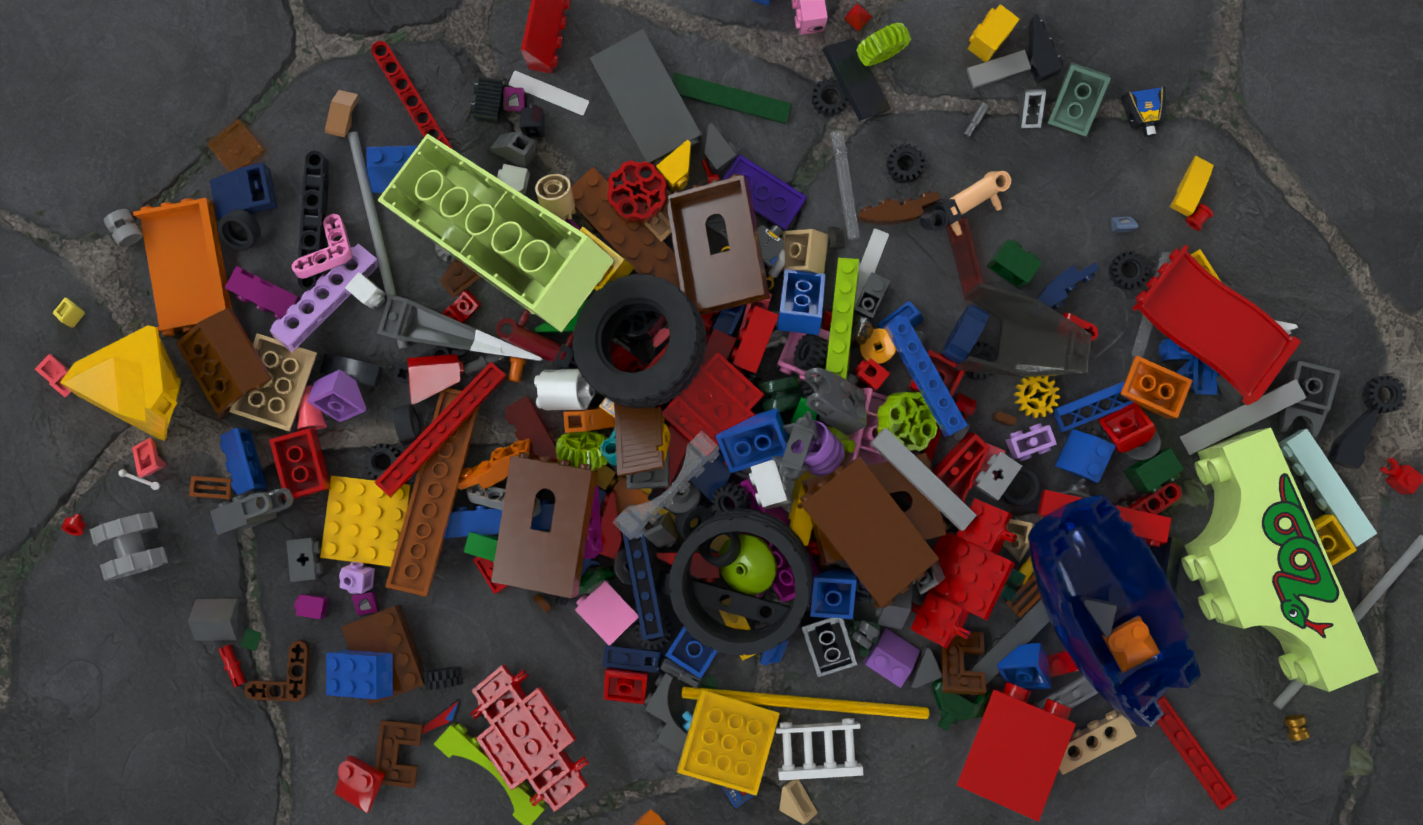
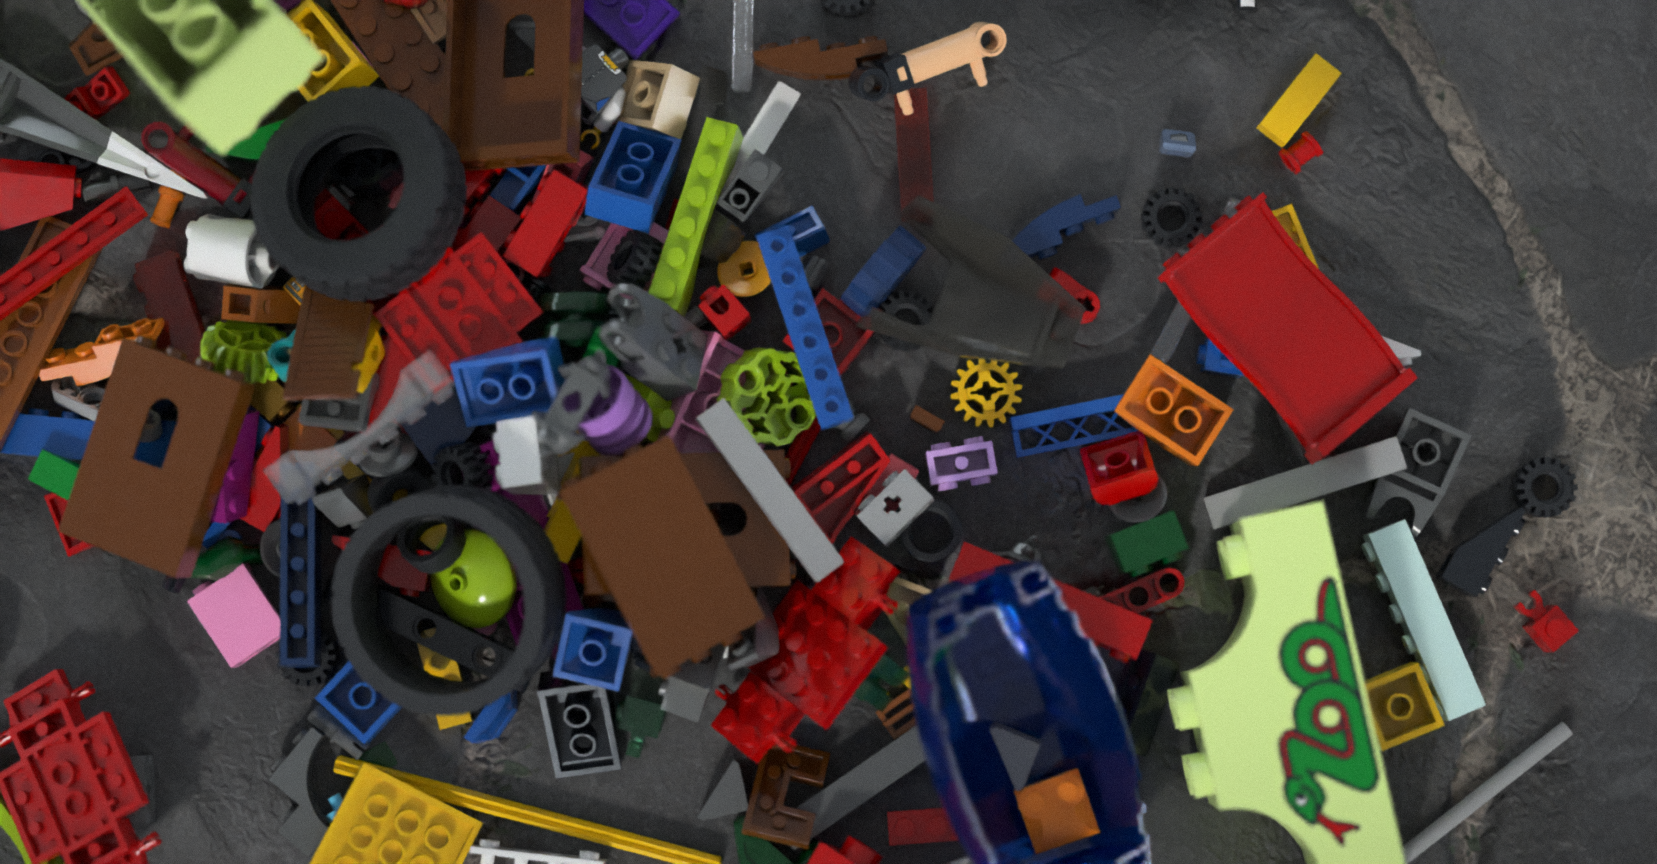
camera: 15 degrees right, 0 degrees up
(542, 603) = (139, 582): reddish brown tile -> none
(625, 685) = (247, 736): red slope -> none
(631, 658) = (264, 695): dark blue plate -> none
(868, 630) = (638, 712): dark grey wheel -> none
(892, 657) = (677, 766): medium lavender slope -> none
(965, 404) = (868, 386): red tile -> none
(1014, 263) = (985, 174): dark green brick -> none
(1026, 667) = (885, 818): blue slope -> none
(1085, 456) = (1044, 501): blue slope -> none
(1203, 377) = (1251, 410): blue slope -> none

